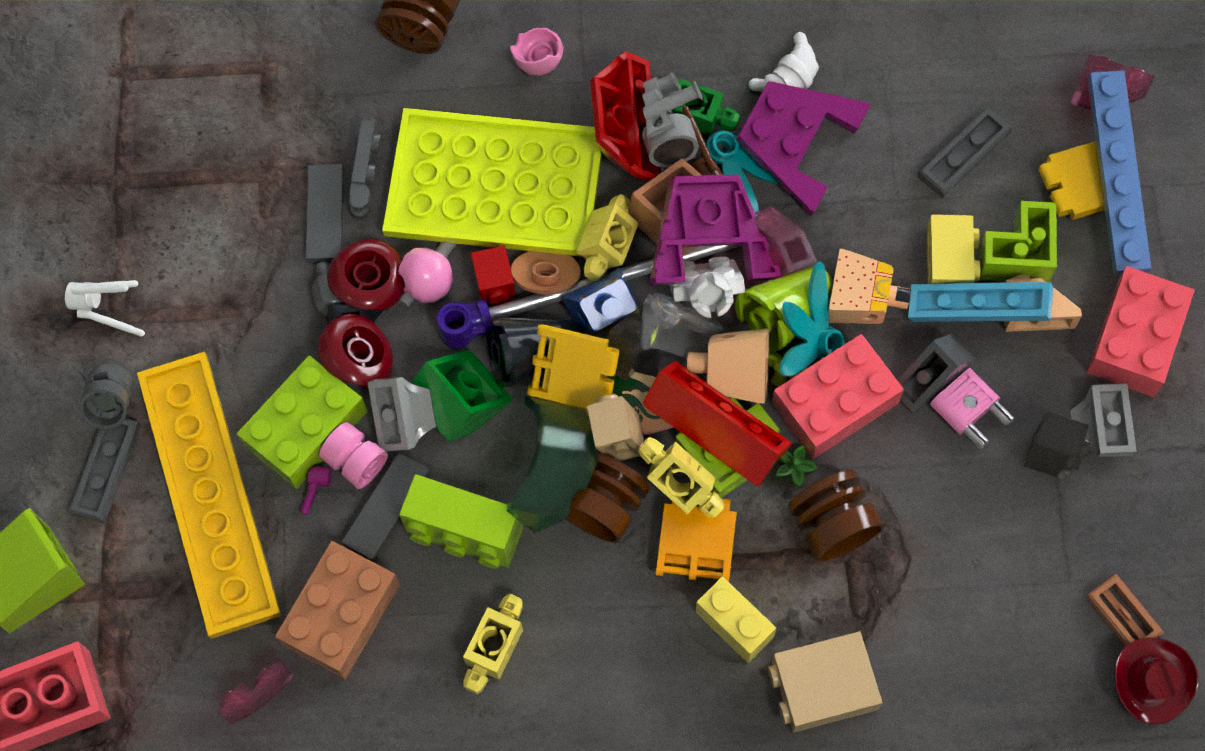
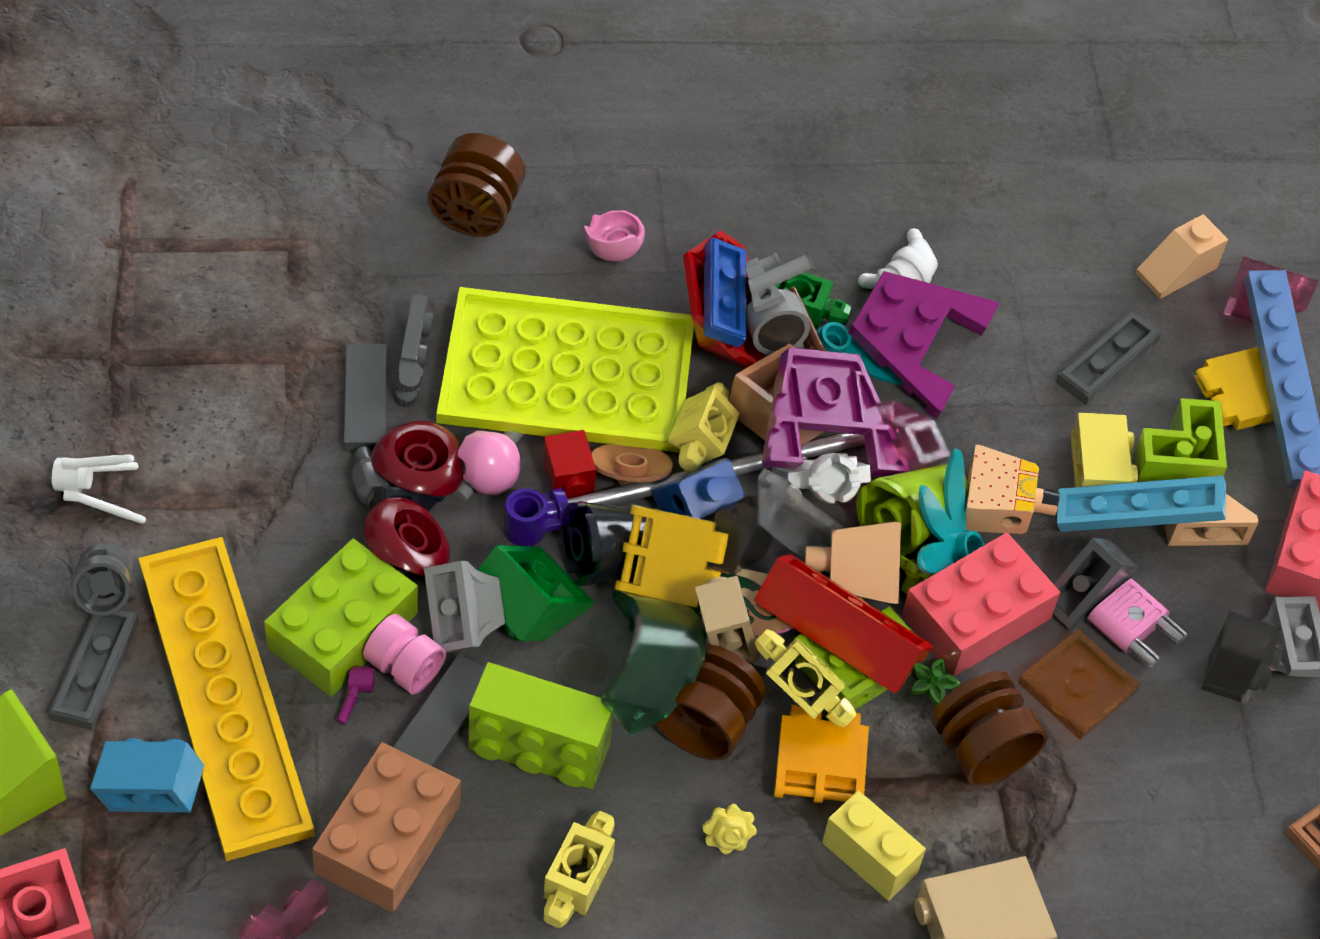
camera: 10 degrees left, 15 degrees down
(145, 570) = (147, 776): none -> dark azure brick
(617, 605) = (729, 829): none -> light yellow plant
(625, 115) = (725, 292): none -> blue tile
(918, 465) = (1079, 684): none -> clear orange tile
(1036, 53) = (1183, 257): none -> light nougat slope

